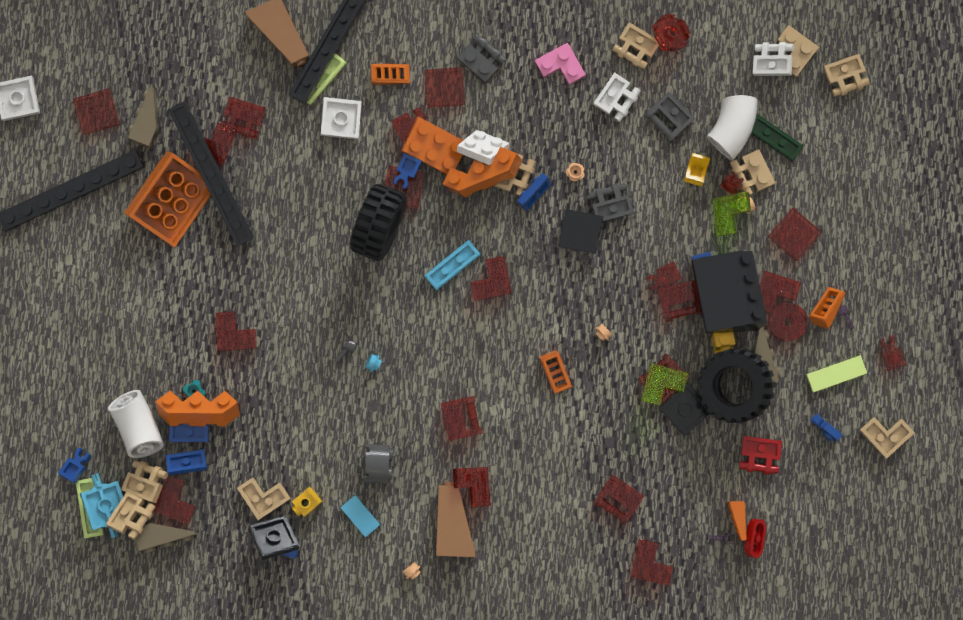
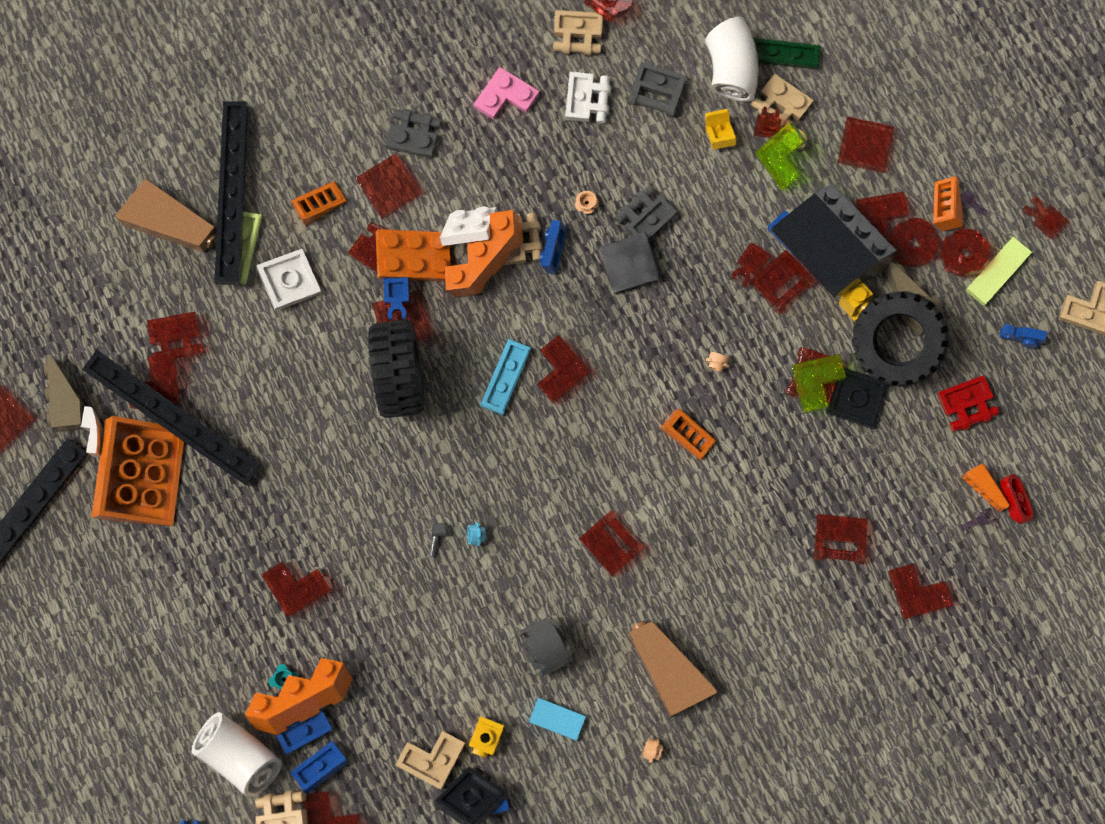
camera: 30 degrees left, 5 degrees down
(156, 148) = (91, 423): none -> white slope
(478, 483) = (668, 604): clear red plate -> none
(817, 338) = (969, 265): none -> clear red plate

